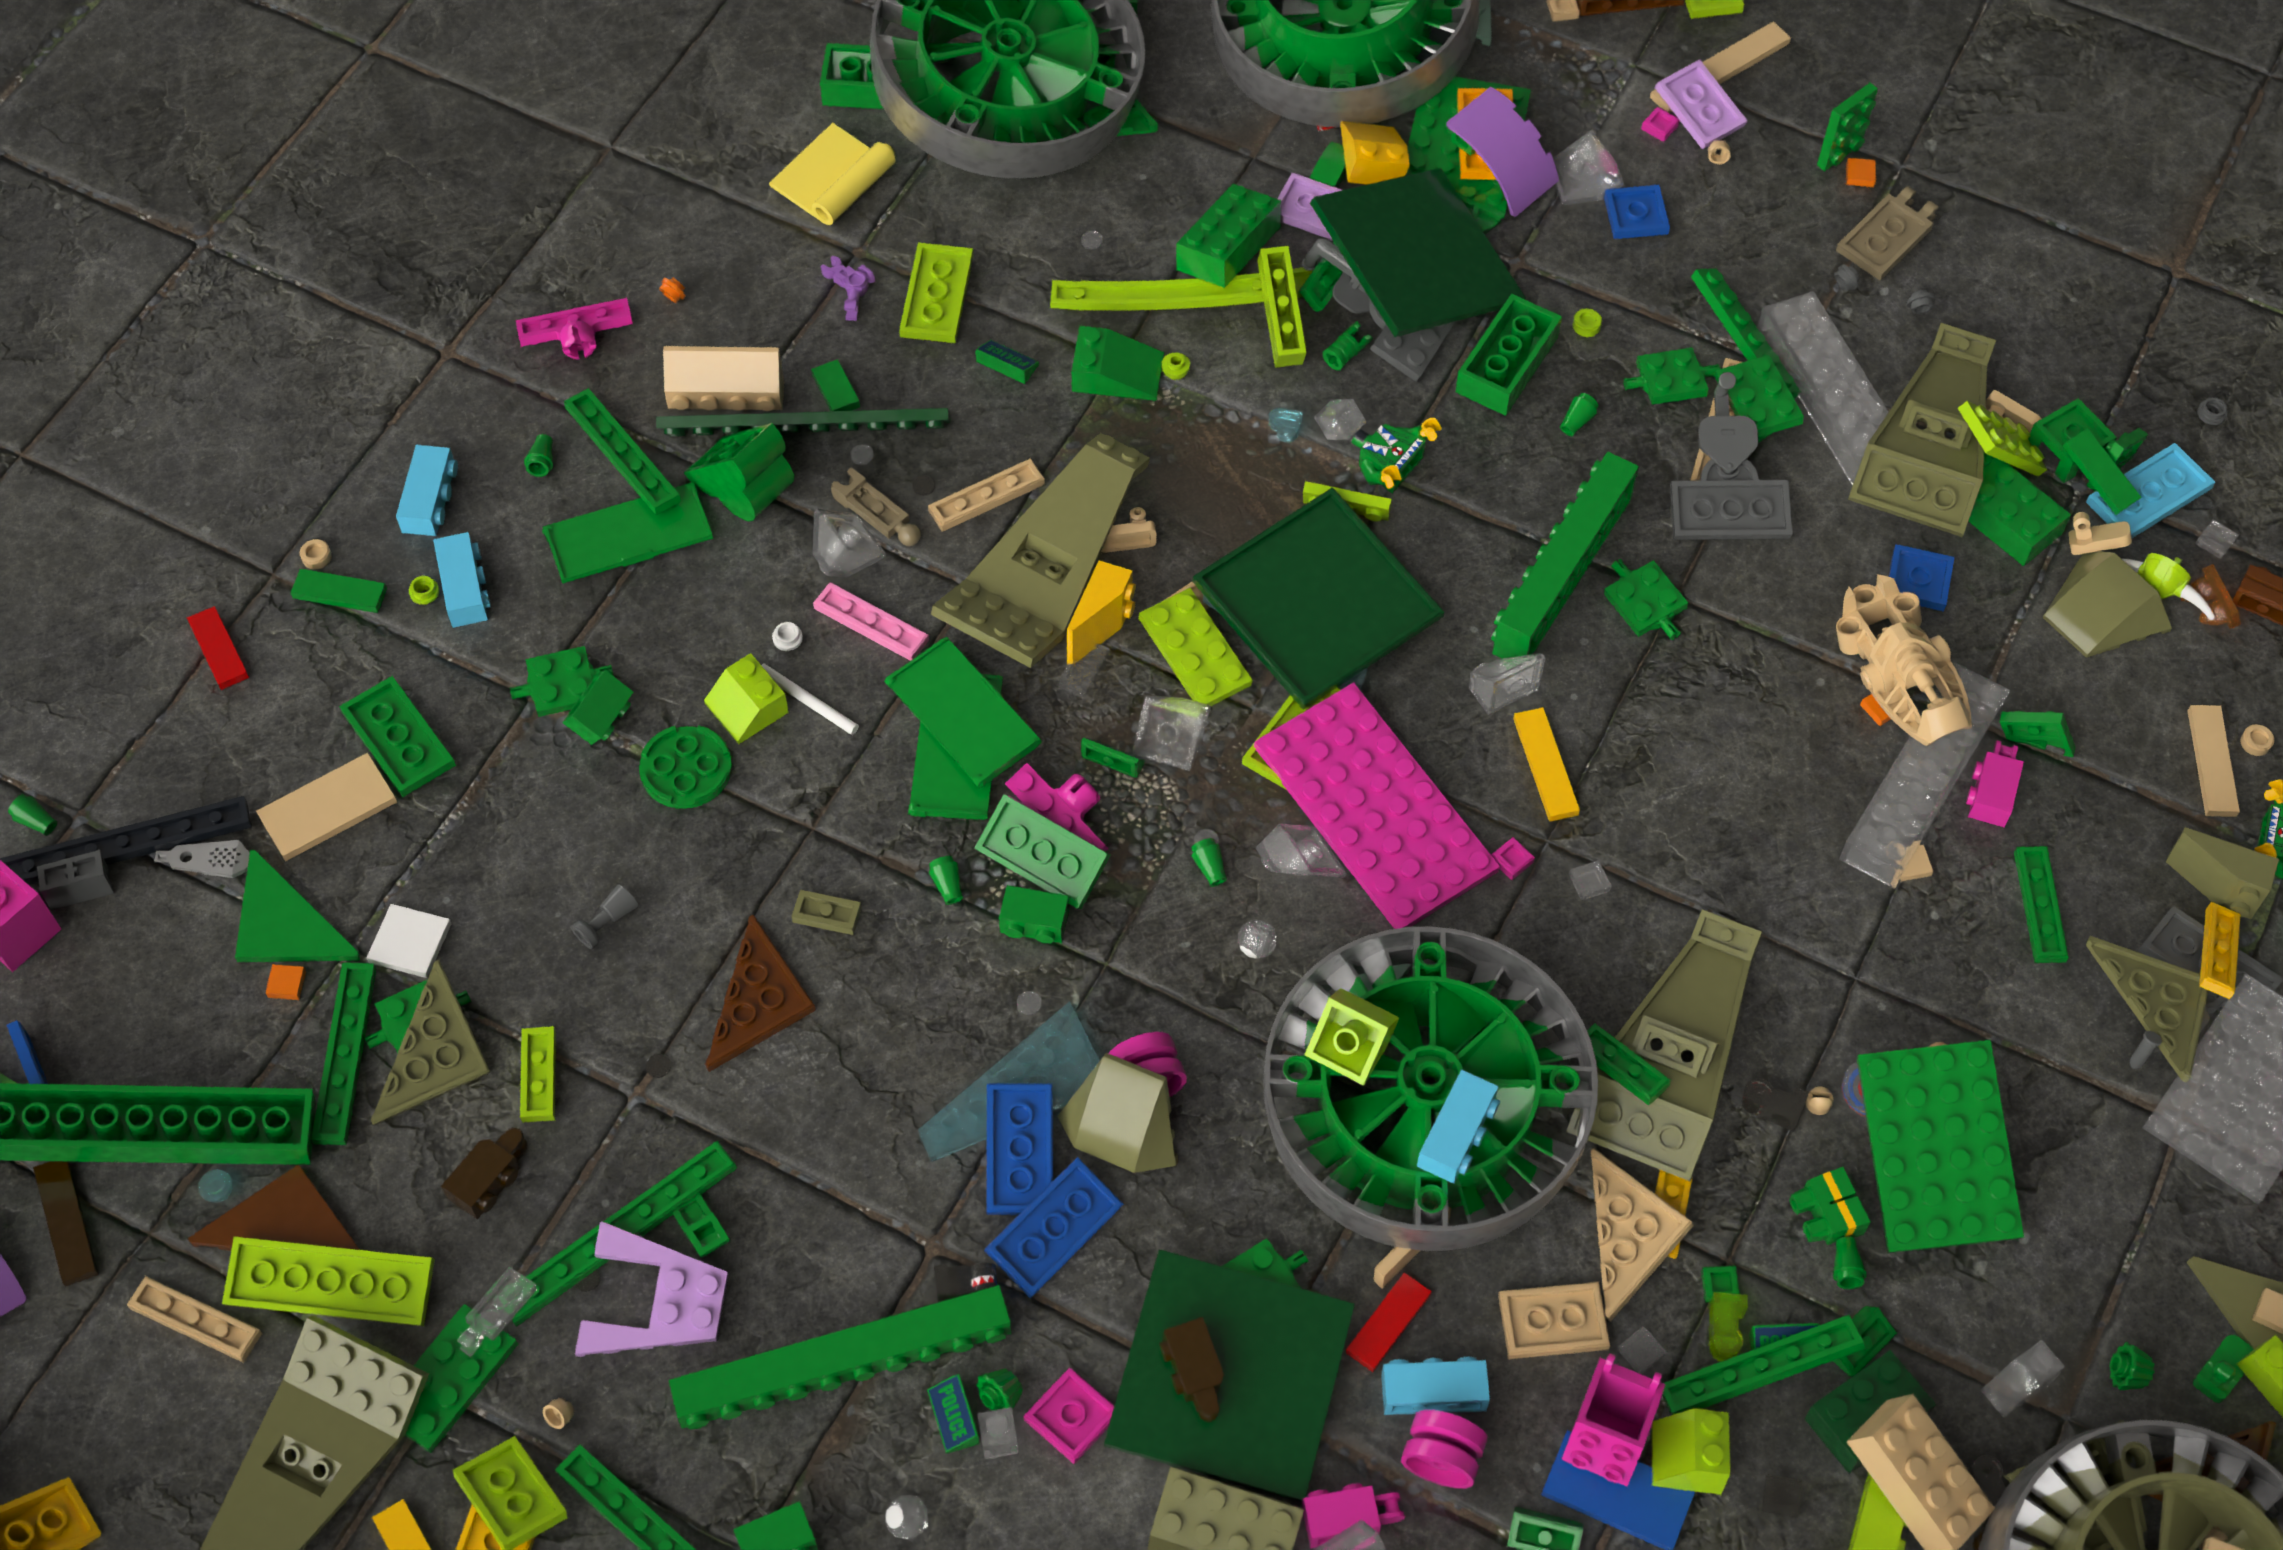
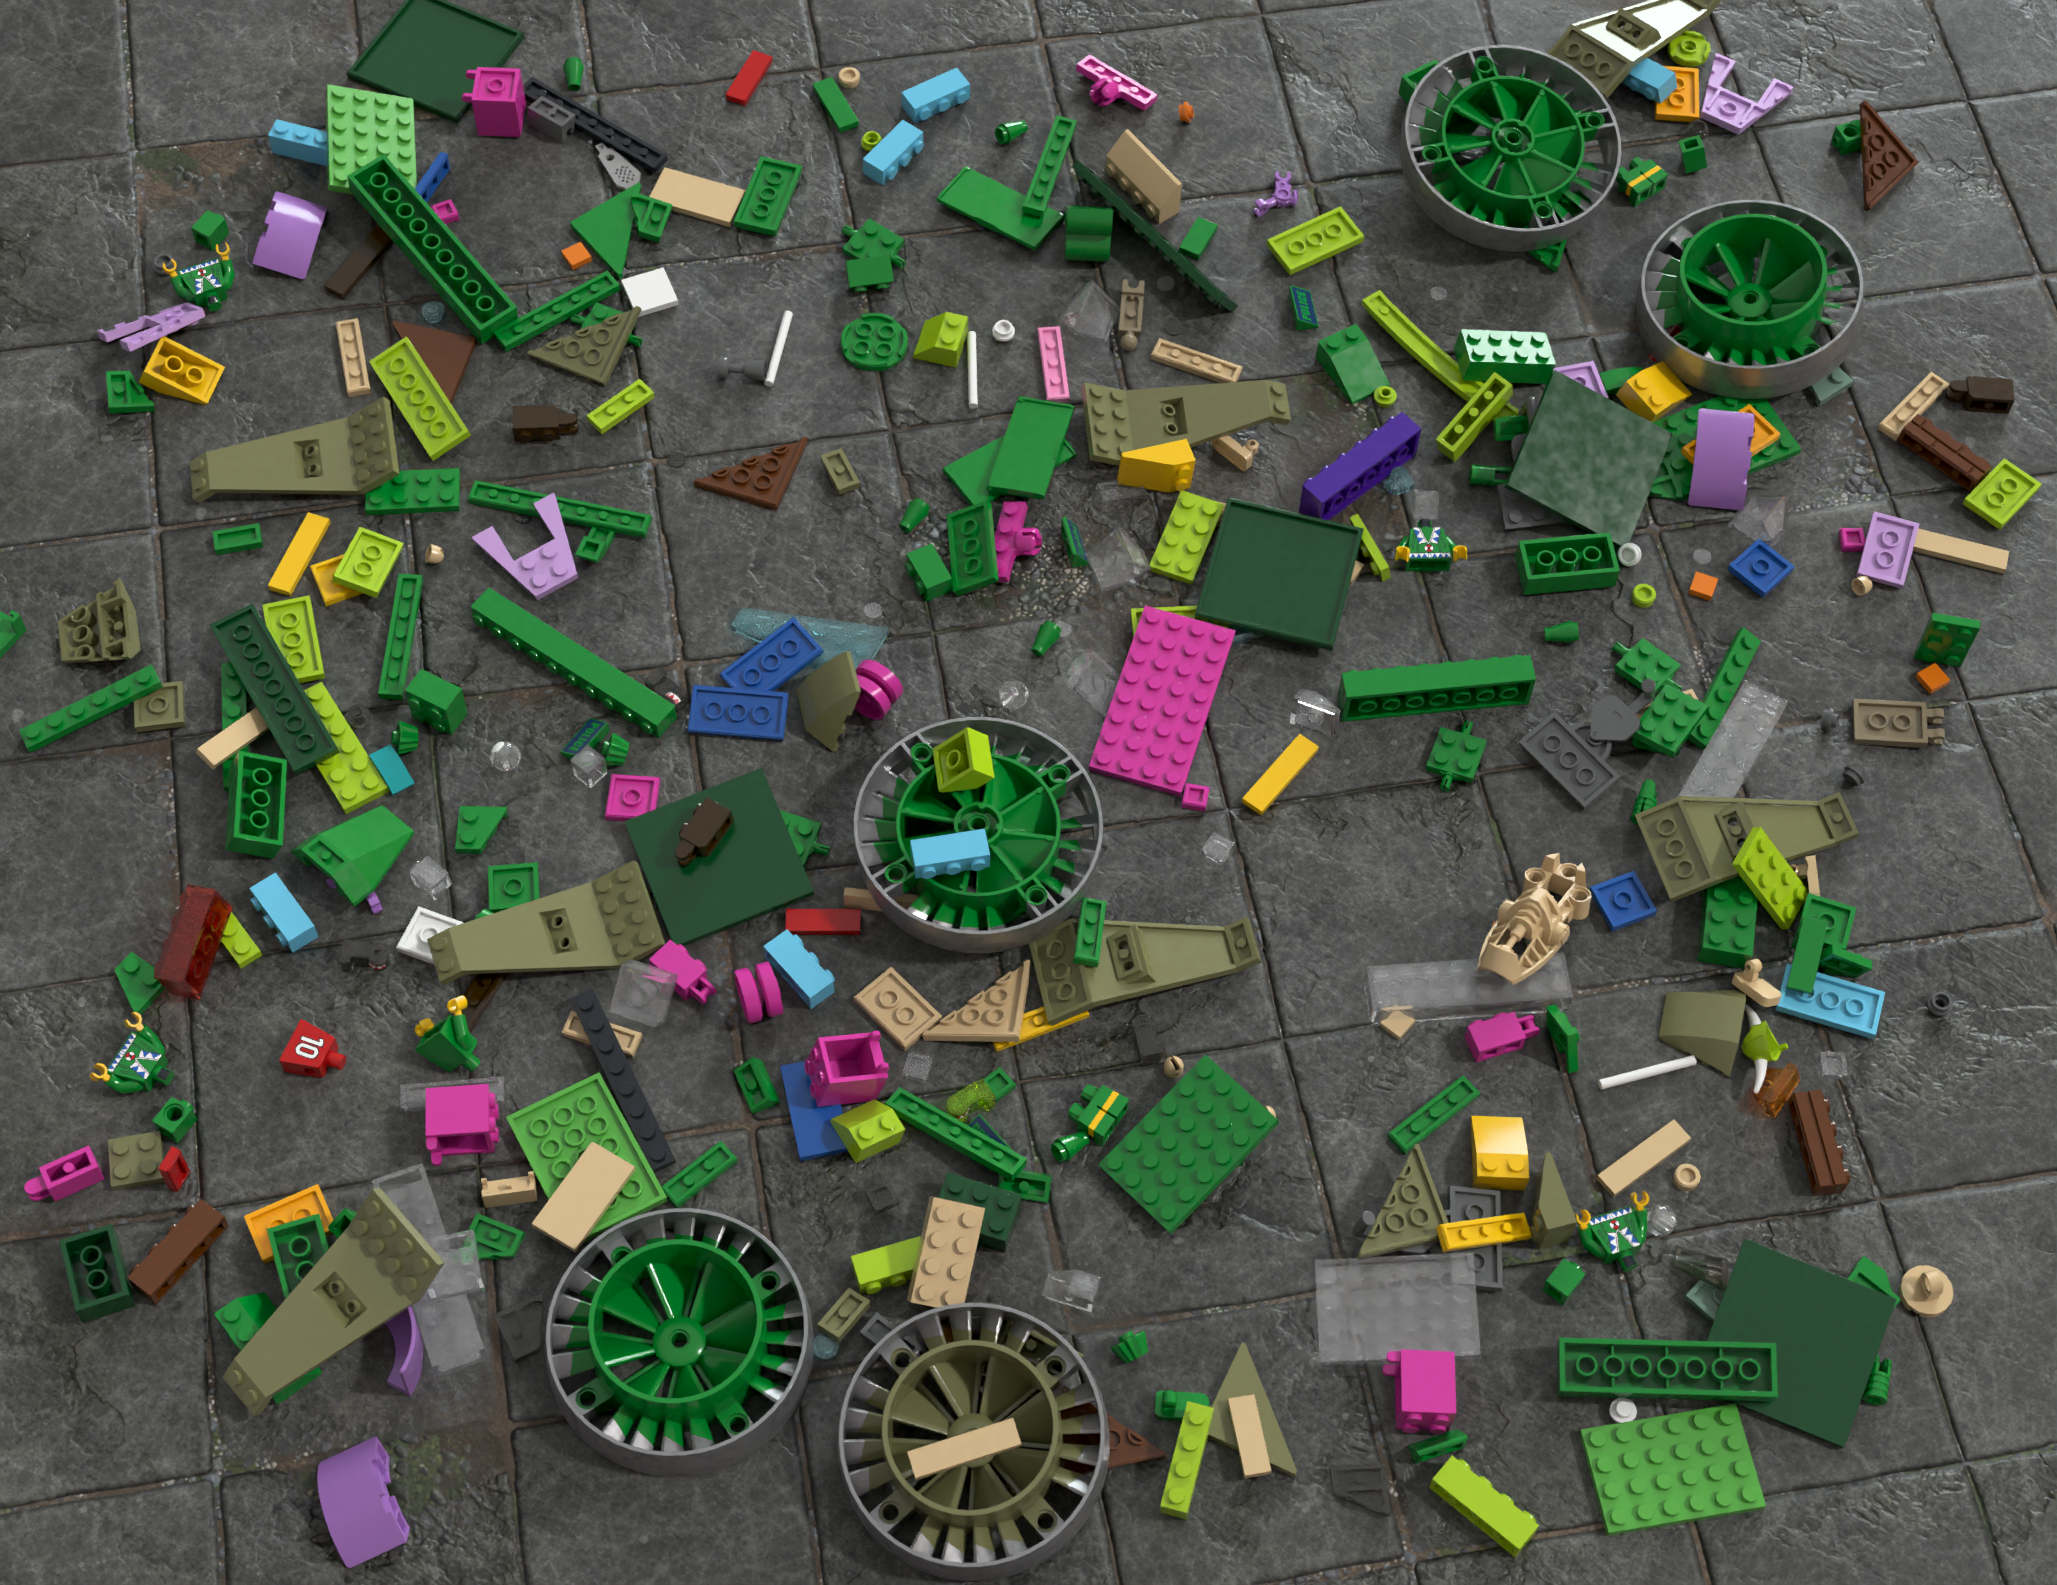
camera: 50 degrees right, 0 degrees up
(88, 1074) = (446, 211): none -> dark pink tile
(309, 870) = (650, 216): none -> green wing
(496, 1309) = (463, 481): clear plate -> none
(605, 861) = (778, 348): none -> white bar
(832, 173) = (1351, 131): light yellow door -> none
(1253, 443) = (1360, 468): none -> dark purple brick
(1537, 296) = (1629, 554): none -> white plate
(1580, 248) = (1702, 556): none -> clear piece
(1616, 269) = (1703, 586): none -> orange tile
(1826, 483) = (1645, 799): none -> green hinge
(2120, 692) = (1647, 1072): none -> white bar
(2126, 875) = (1499, 1153): none -> yellow slope

